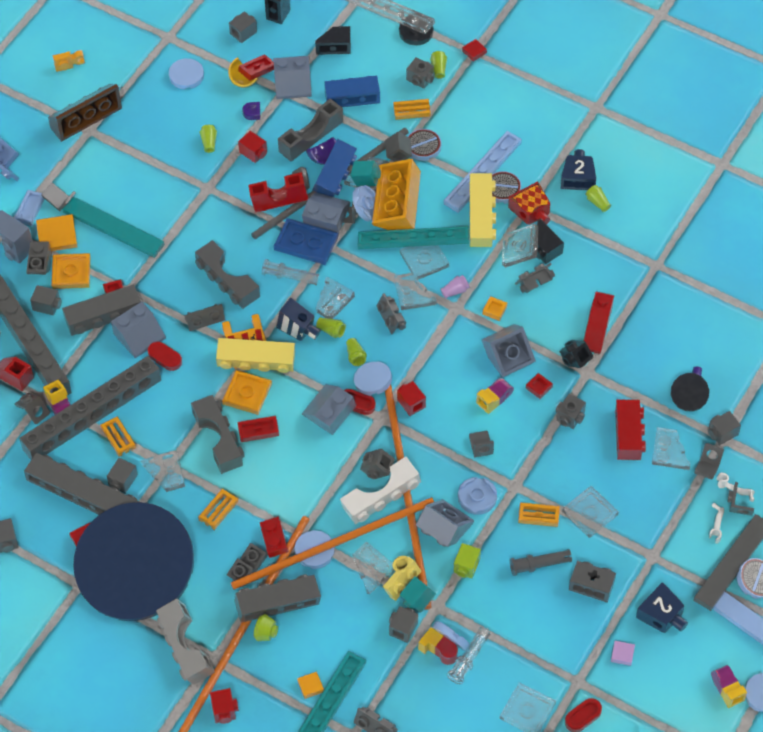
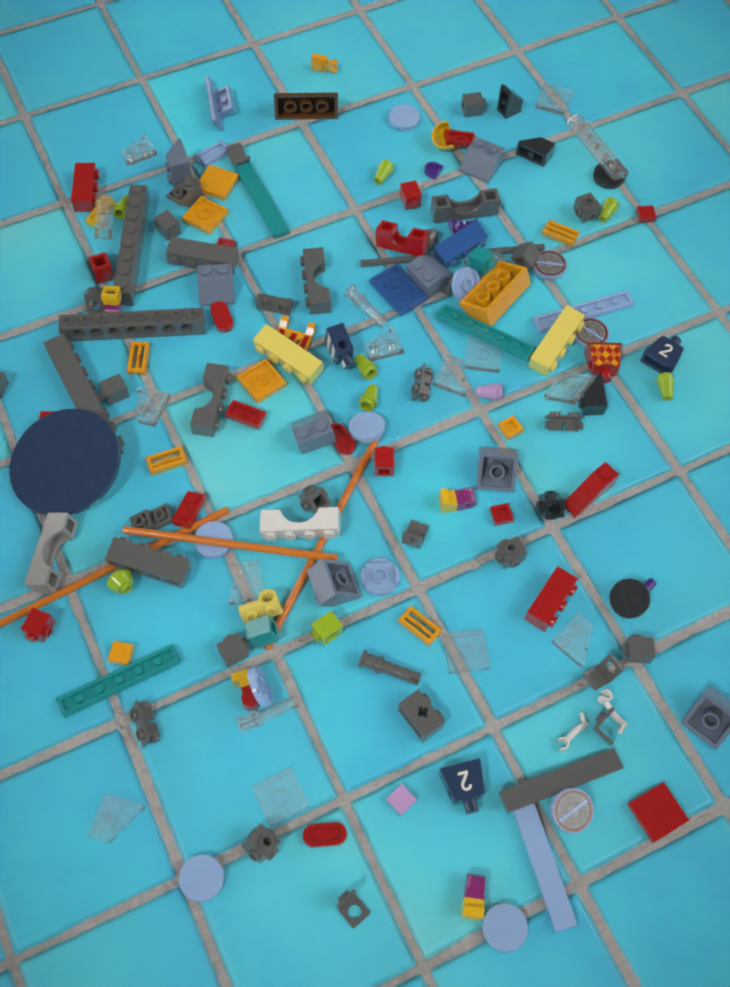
camera: 30 degrees right, 5 degrees up
(353, 91) = (522, 194): blue brick -> none

